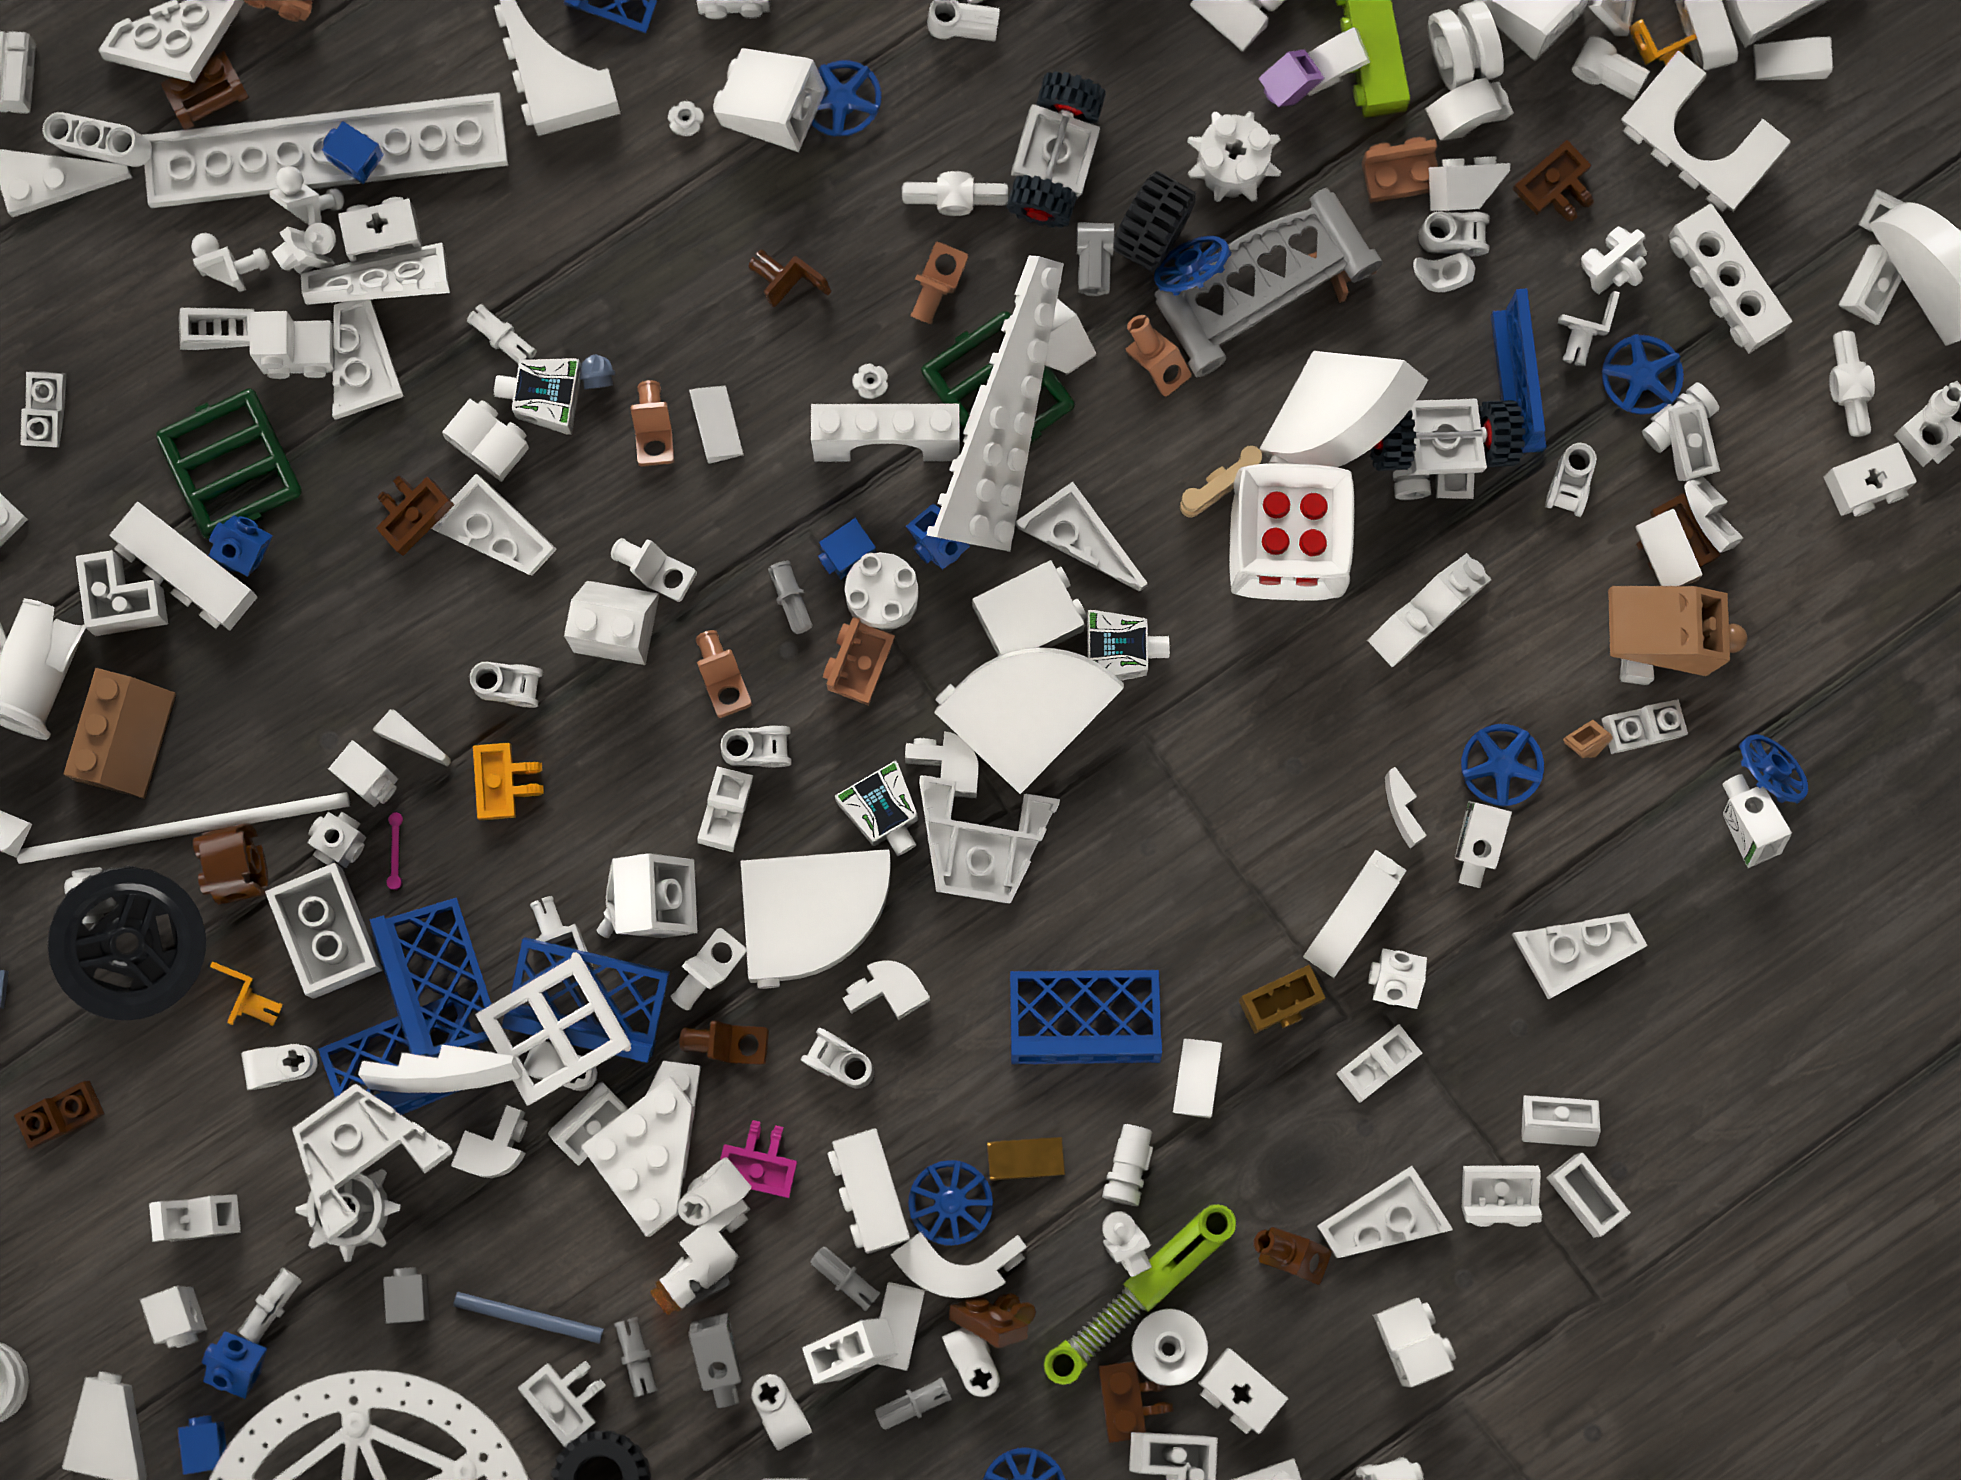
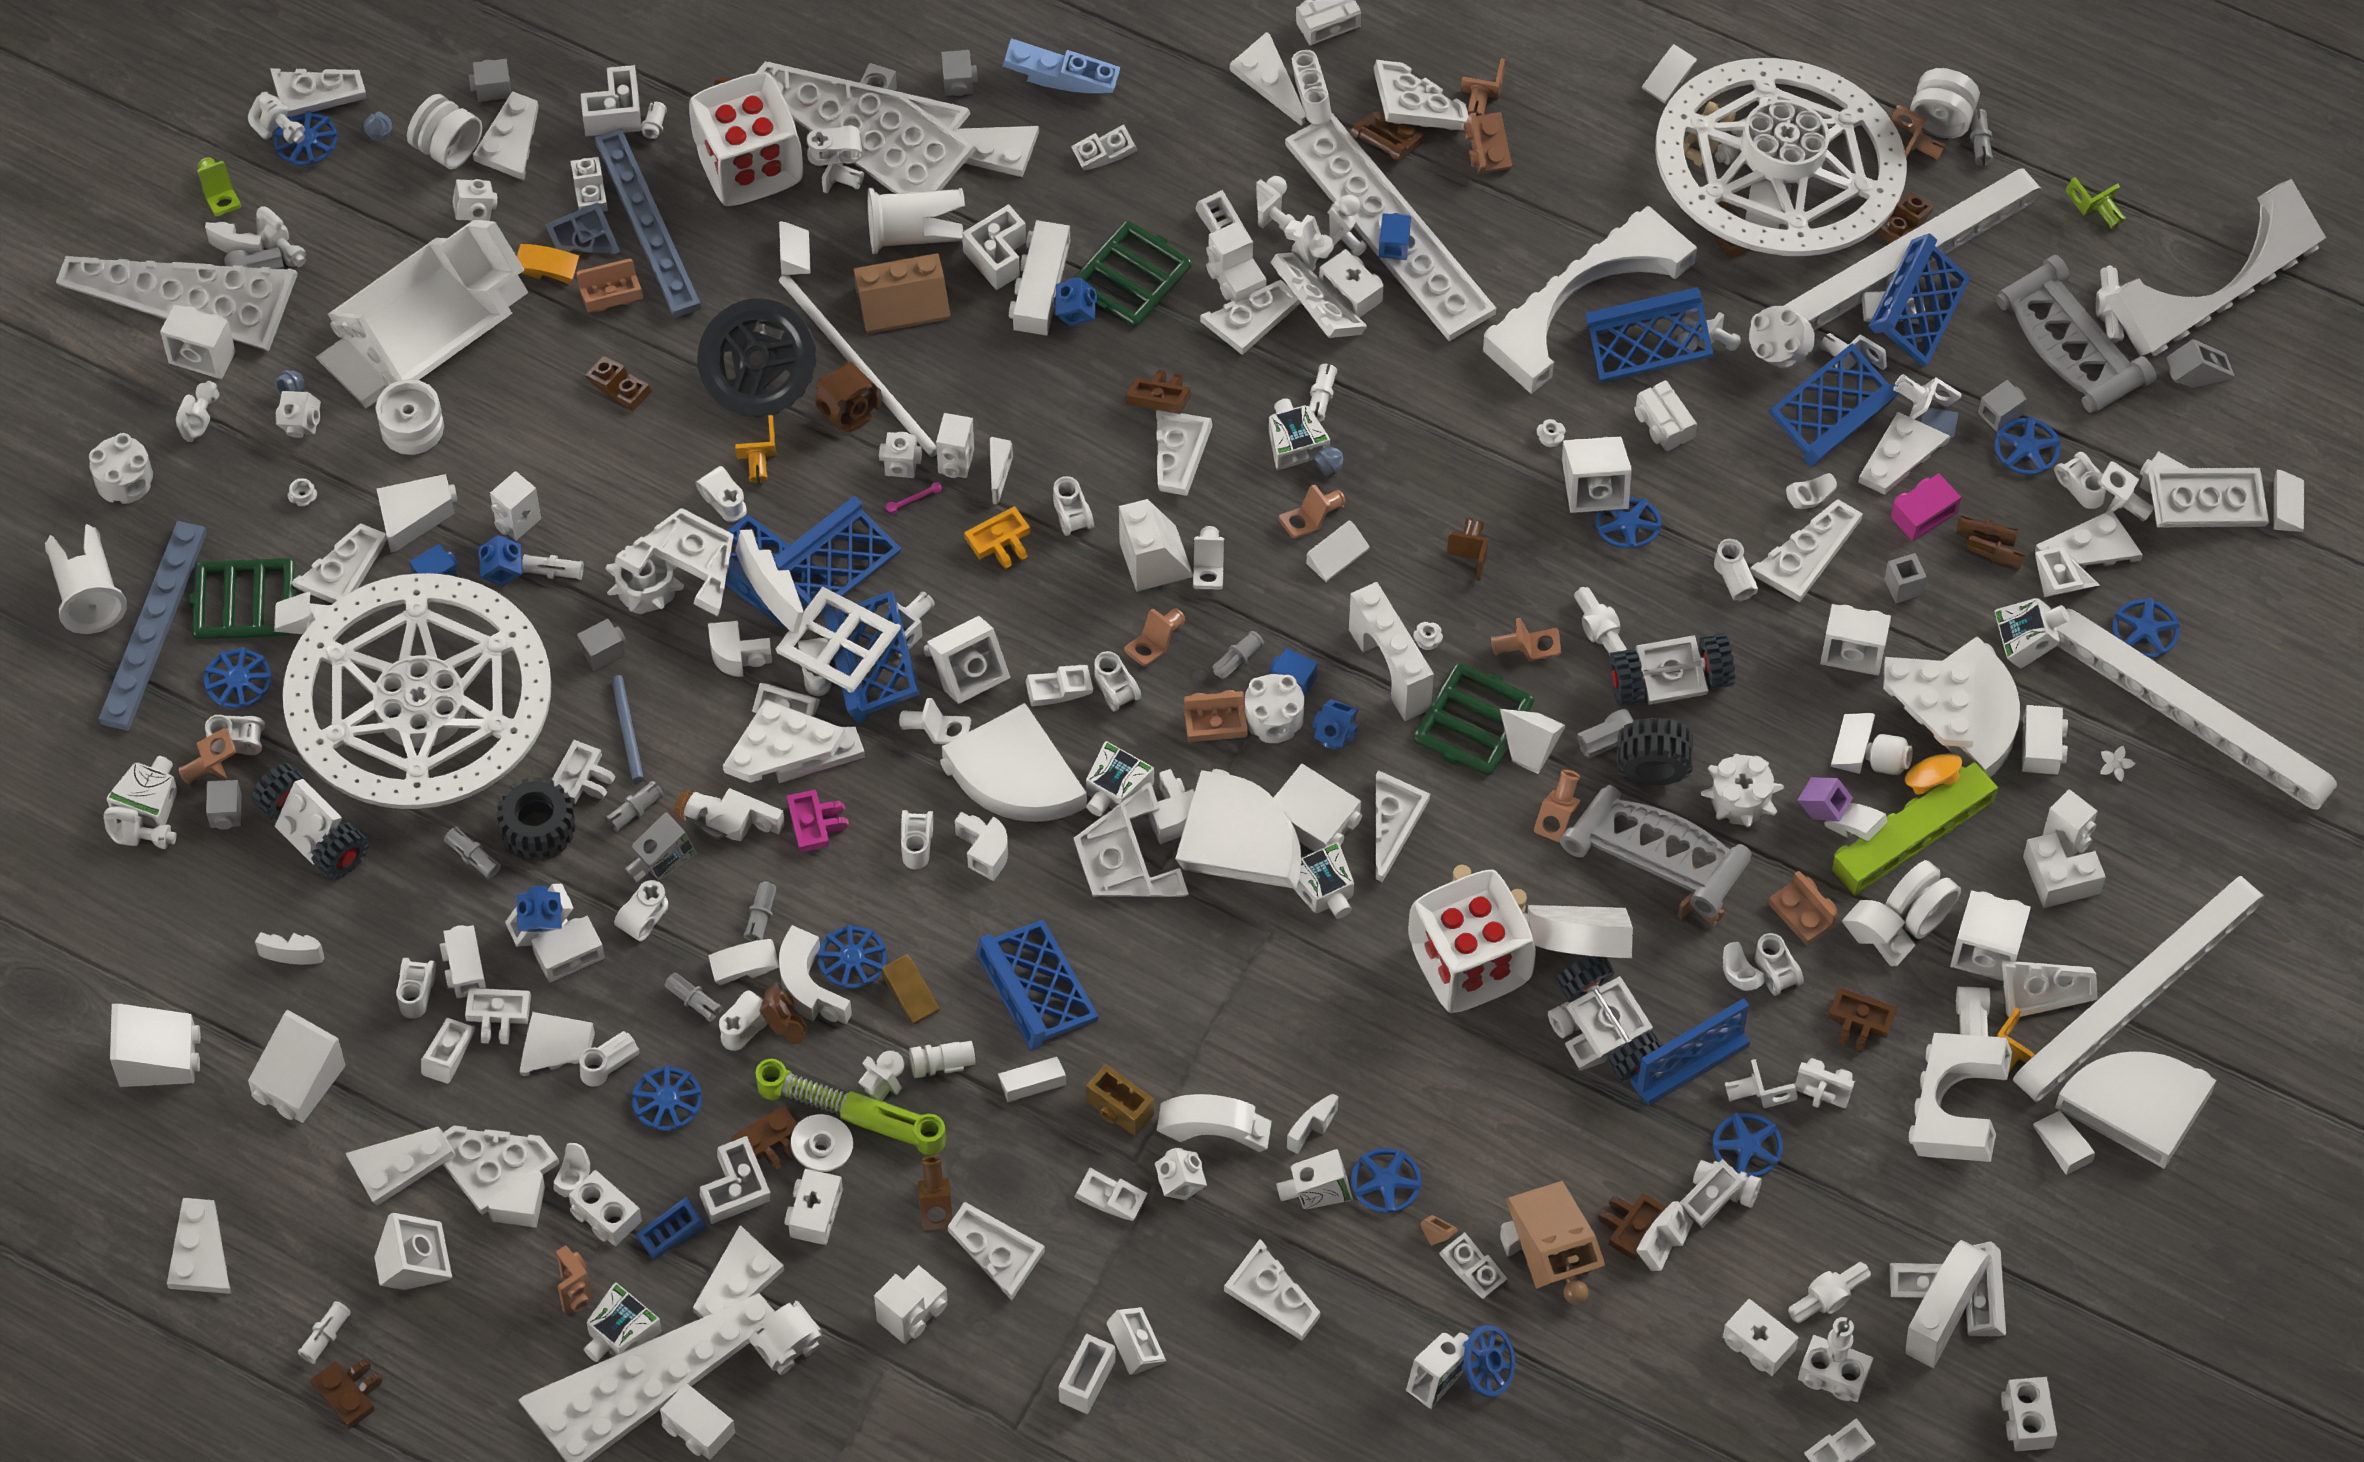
camera: 65 degrees right, 20 degrees down
(194, 1218) = (587, 490): white brick -> none
(323, 930) = (831, 472): white brick -> none
(486, 439) = (1239, 415): white brick -> none
(712, 1193) = (776, 791): white piece -> none
(724, 1042) = (889, 758): reddish brown bracket -> none
(850, 1350) = (709, 929): white brick -> none
(869, 1191) = (831, 890): white brick -> none
(998, 434) = (1411, 724): white wing -> none
(1191, 263) = (1639, 794): blue wheel -> none
(1429, 609) = (1484, 1072): white arch -> none
(1464, 186) = (1815, 951): white slope -> none
(1501, 1195) = (1056, 1318): white bracket -> none
(1572, 486) = (1630, 1126): white piece -> none
(1669, 550) = (1616, 1213): white slope -> none
(1709, 229) = (1841, 1209): white brick -> none

